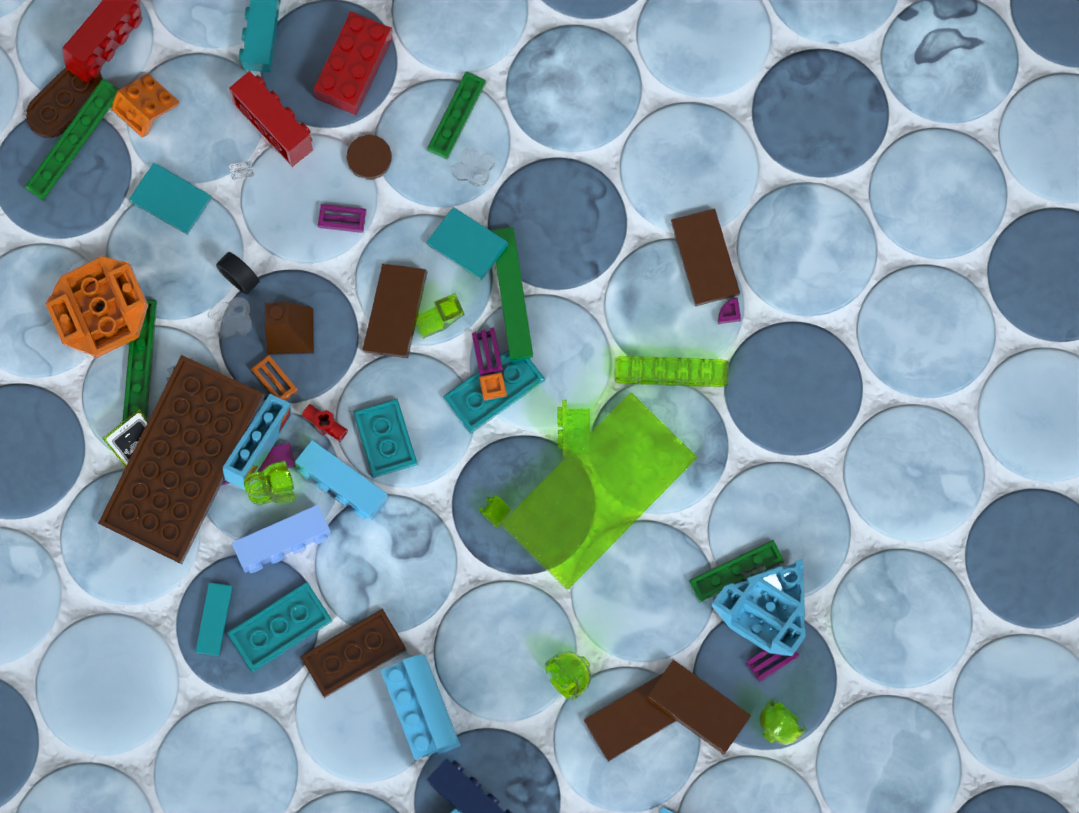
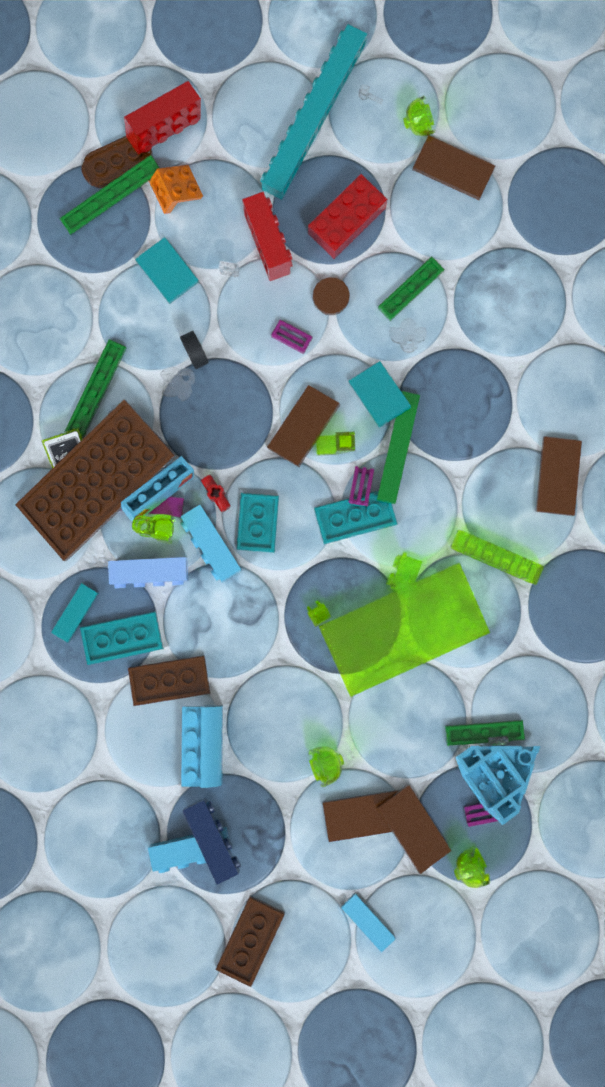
camera: 20 degrees right, 10 degrees up
(80, 294) = (64, 323): orange piece -> none
(286, 394) = (196, 459): orange tile -> none
(289, 328) = (217, 408): reddish brown slope -> none
(492, 386) = (355, 515): orange tile -> none
(730, 312) = (560, 527): magenta tile -> none

